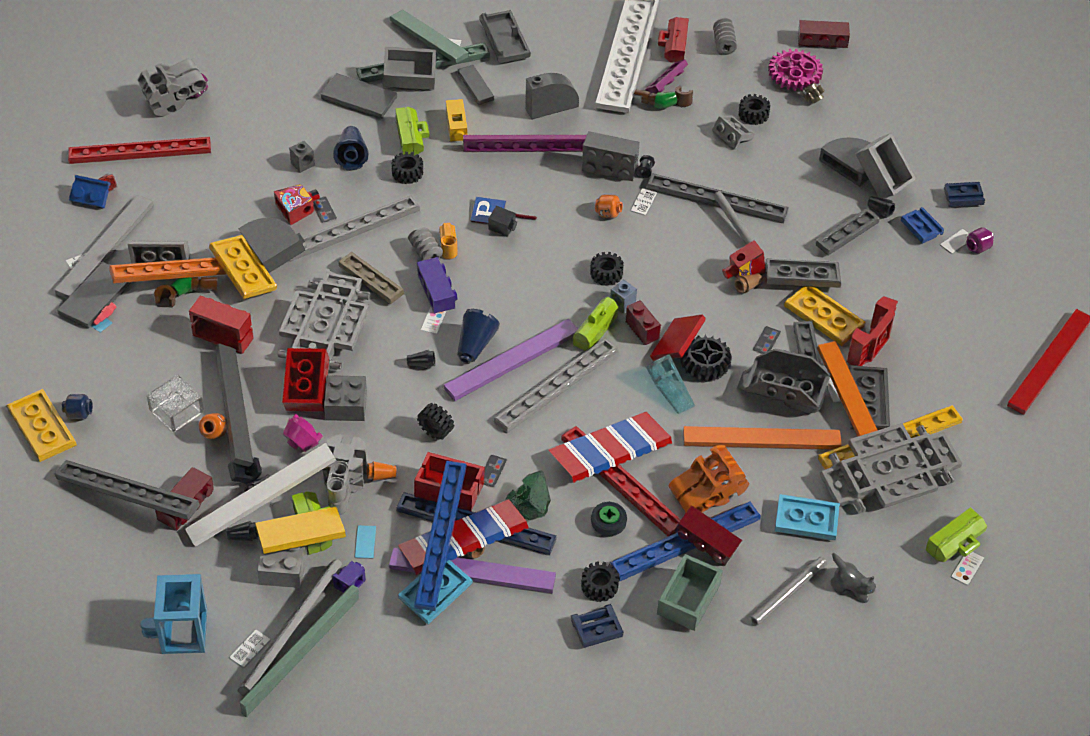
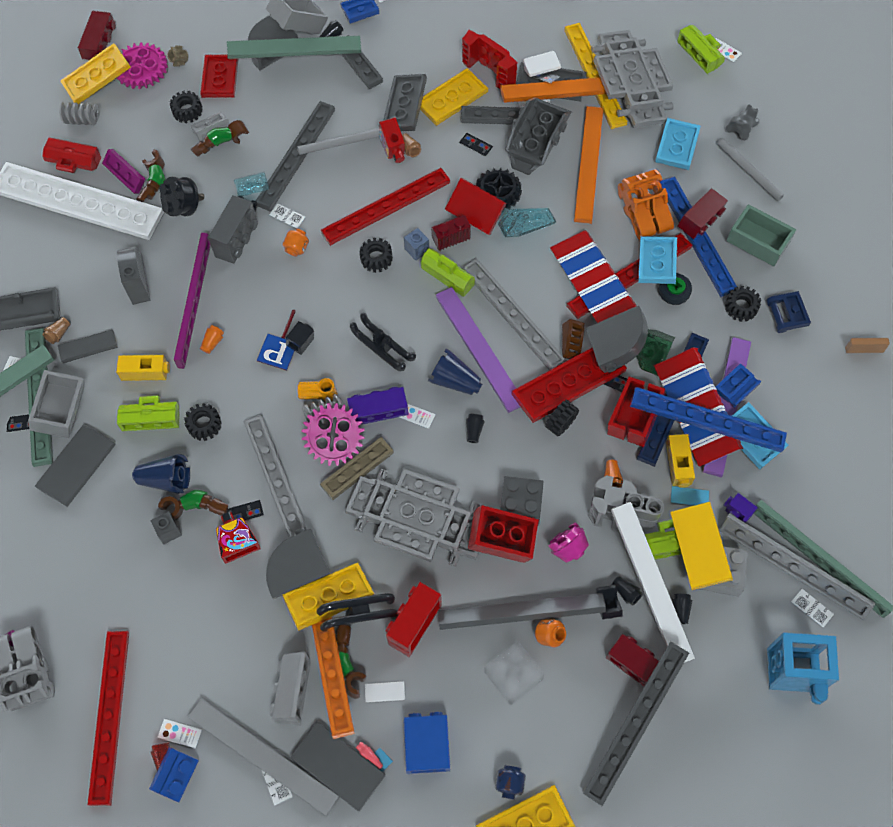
camera: 80 degrees left, 15 degrees up
(112, 348) = (426, 743): none -> blue brick
(125, 194) = (179, 733): none -> white sticker
(161, 321) = (384, 691): none -> white sticker
(228, 284) = (357, 610): none -> black piece
(330, 171) = (192, 500): none -> reddish brown piece
(400, 251) = (315, 431): none -> dark pink gear
(400, 525) = (680, 460): none -> yellow brick
(482, 429) = (562, 383): none -> red plate
(487, 61) = (56, 330): none -> medium nougat cone
(491, 570) = (737, 385): none -> blue plate
(493, 162) = (211, 339): none -> orange cone
(506, 282) = (381, 343): none -> black piece
(524, 453) = (618, 338): none -> dark grey brick
(546, 428) = (569, 328): none -> reddish brown slope
(562, 699) = (867, 345): none -> medium nougat tile
(637, 494) = (658, 260): none -> medium azure plate
(639, 114) = (179, 196): none -> black wheel
(668, 165) = (251, 184): none -> clear light blue hips
(670, 274) = (385, 206): none -> red tile
(721, 136) = (220, 135): none -> reddish brown piece
(775, 39) = (95, 74): none -> yellow tile
(802, 130) = (219, 77): none -> red tile
(844, 173) = (293, 47): none -> sand green tile
(866, 383) = (548, 77): none -> sticker
(882, 380) = (541, 63): none -> white slope

